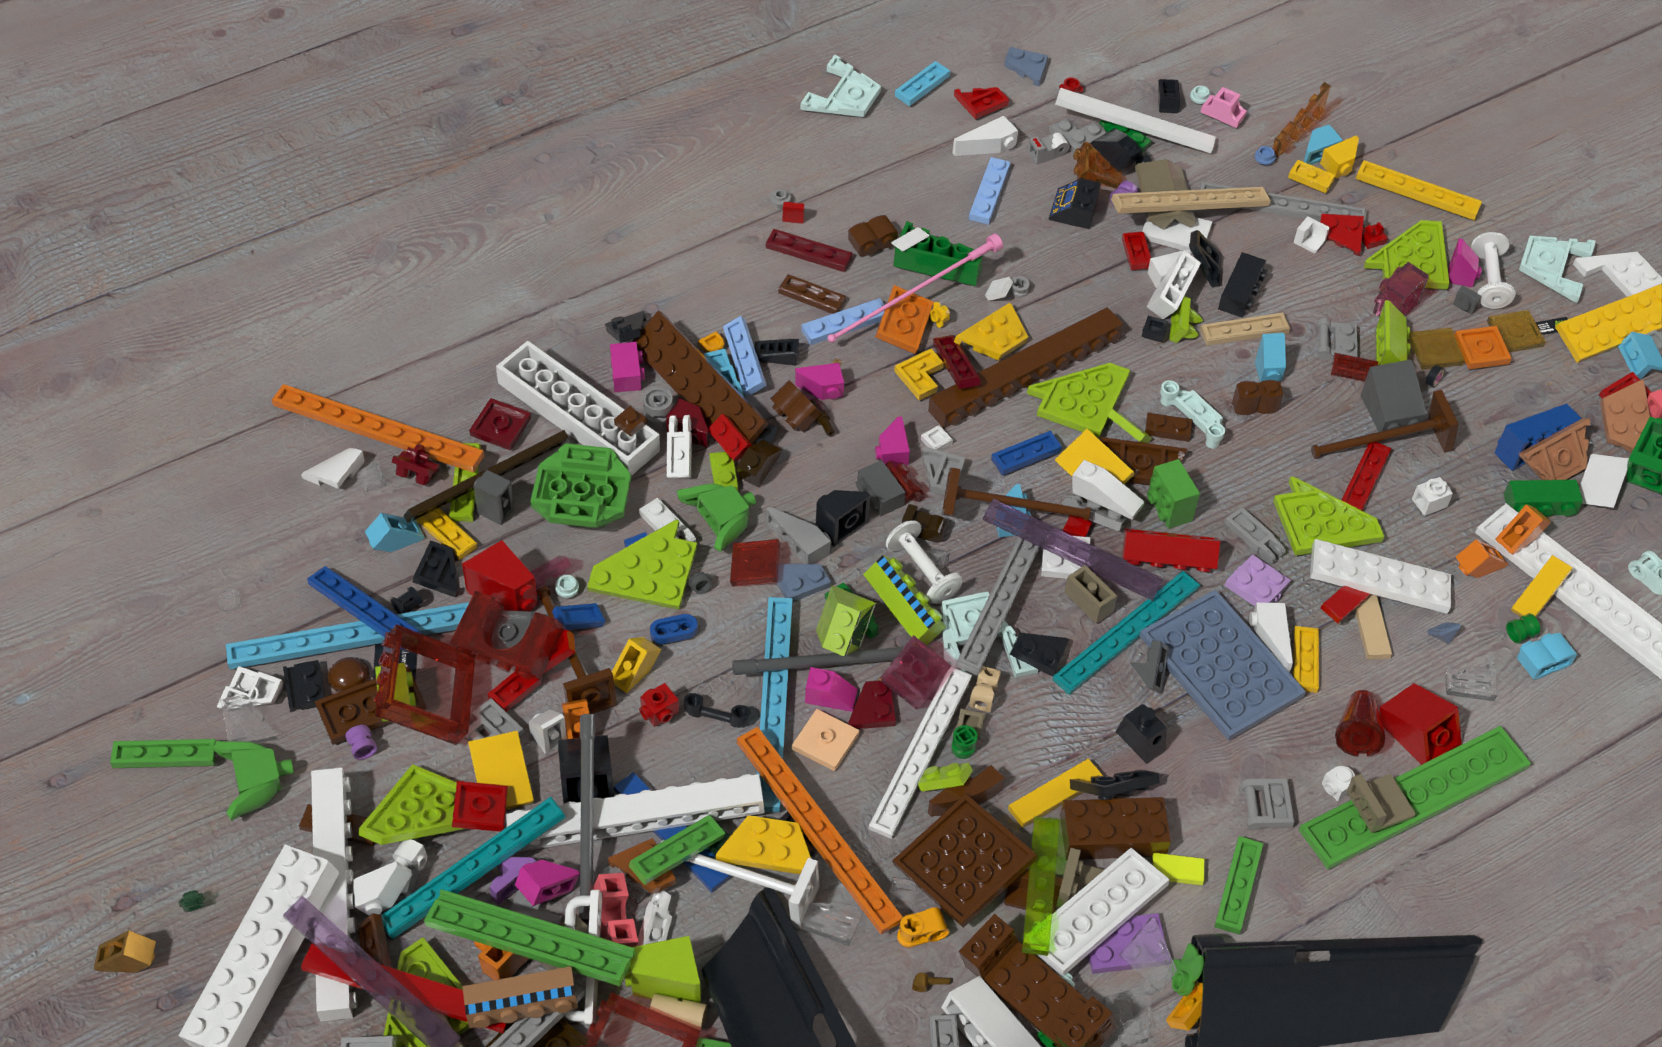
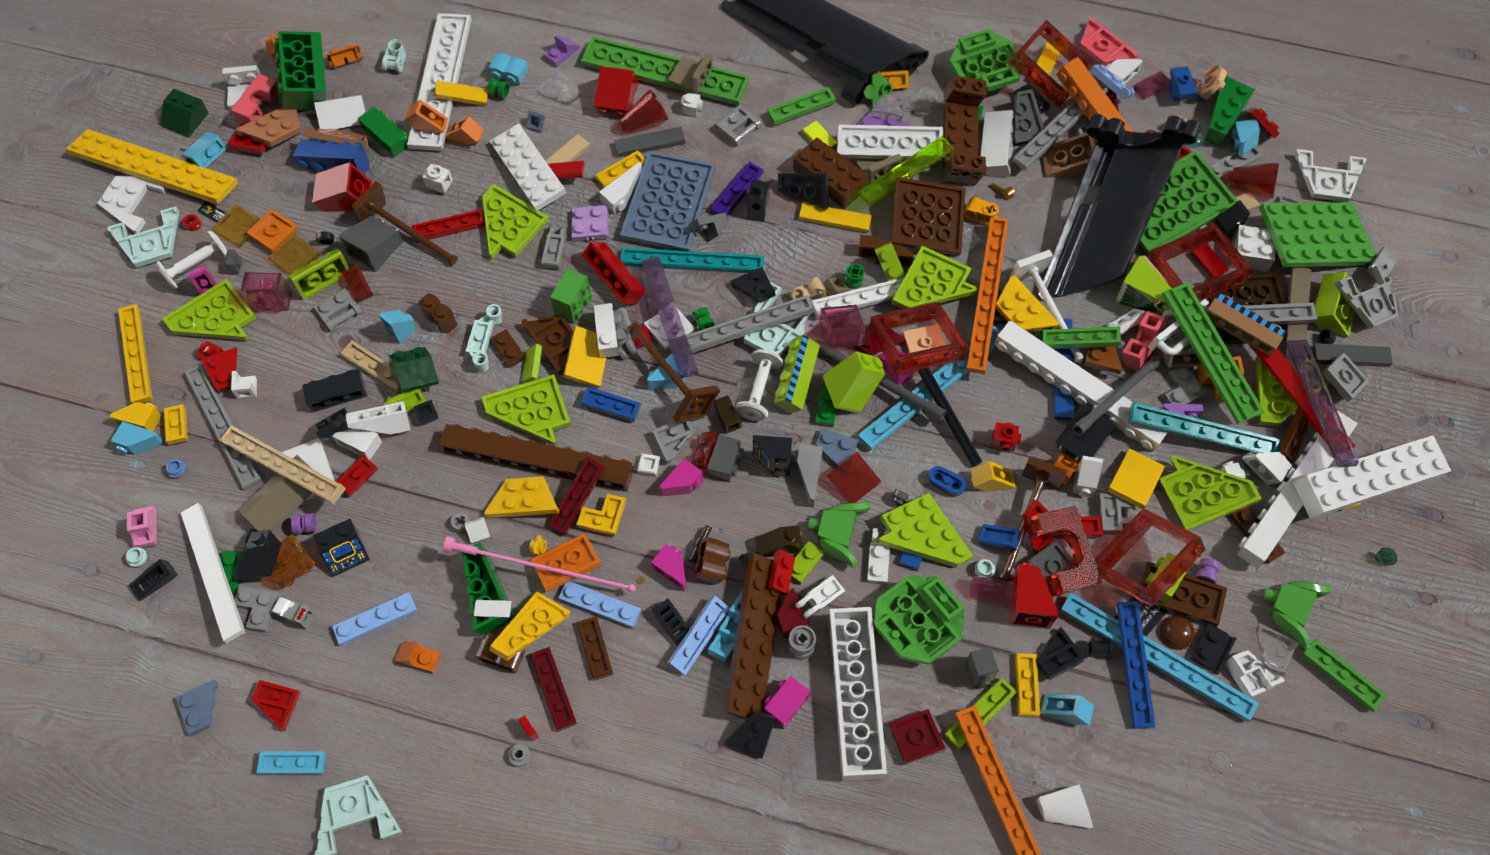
camera: 130 degrees left, 10 degrees up
(125, 953) = (1450, 555): pearl gold slope -> none
(416, 461) = (1008, 751): dark red hips -> none
(479, 806) = (1170, 461): red tile -> none
(500, 469) = (970, 692): dark brown tile -> none
(545, 881) = (1169, 388): dark pink slope -> none
(630, 421) = (841, 633): reddish brown plate -> none
(694, 707) = (962, 396): black bar -> none
(711, 342) = (705, 670): light orange tile -> none
(730, 681) = (950, 417): none -> black axle
(814, 751) = (923, 358): none -> clear red window
(874, 262) = (528, 625): none -> yellow wing
(884, 795) = (933, 280): none -> lime wing
(927, 194) = (418, 657): none -> orange slope
(987, 139) = (313, 657): white slope -> none
(1044, 581) = (702, 319): none -> green wheel
(1071, 84) = (198, 648): red plate -> none
(1090, 594) = (690, 286): dark tan brick -> none
(1179, 737) = (736, 190): none -> dark purple tile
(1204, 334) = (413, 369): none -> dark green slope
(1303, 121) = (117, 463): clear orange wing -> none
(1321, 710) = (649, 141): none -> dark grey tile
(1485, 418) = (339, 188): none -> red slope
(1537, 727) = (561, 51): none -> medium lavender slope
(1546, 303) = (195, 225): none -> red bush

